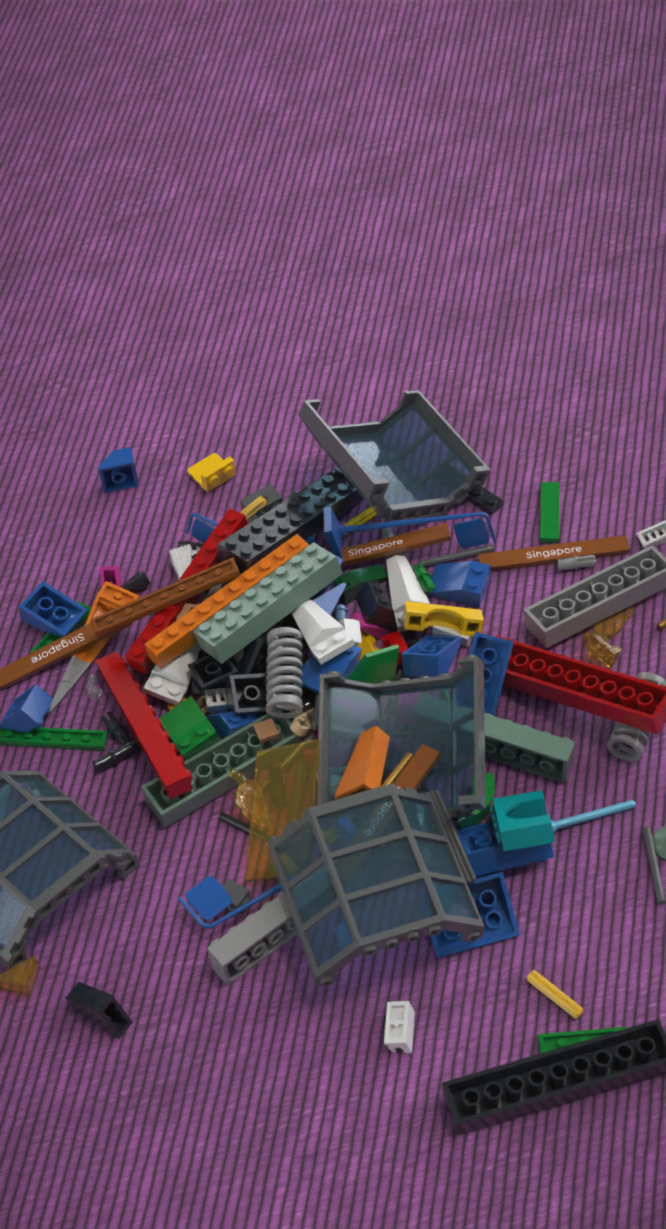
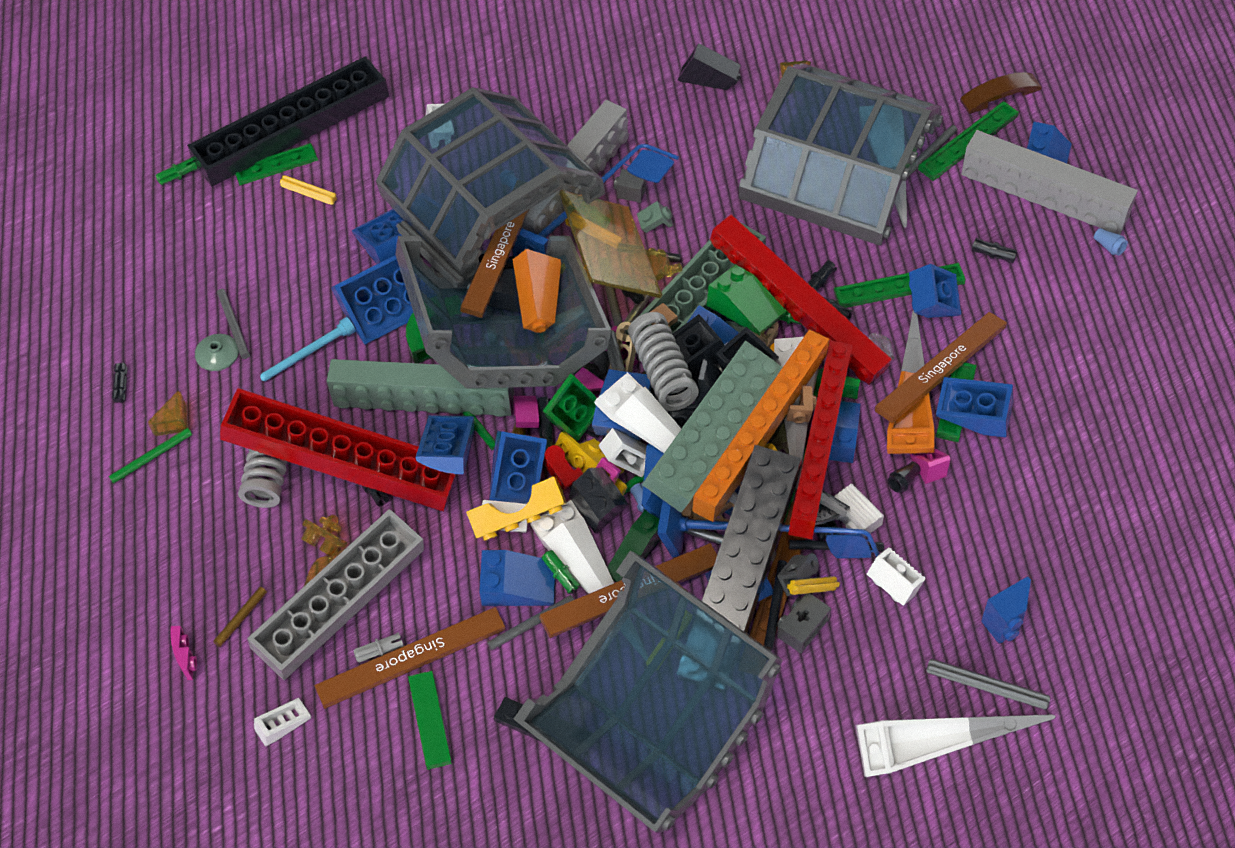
camera: 160 degrees right, 5 degrees up
(159, 446) = (988, 684): none -> axle
(165, 597) = (834, 401): dark orange tile -> none
(180, 508) = (895, 576): none -> white brick
(212, 471) = (893, 657): yellow bracket -> none
(226, 858) = (654, 216): none -> sand green bracket
(231, 423) = (903, 743): none -> white plate
(398, 770) = (502, 282): pearl gold bar -> none
(468, 533) = (683, 571): blue piece -> none
(522, 821) = (370, 266): teal arch -> none

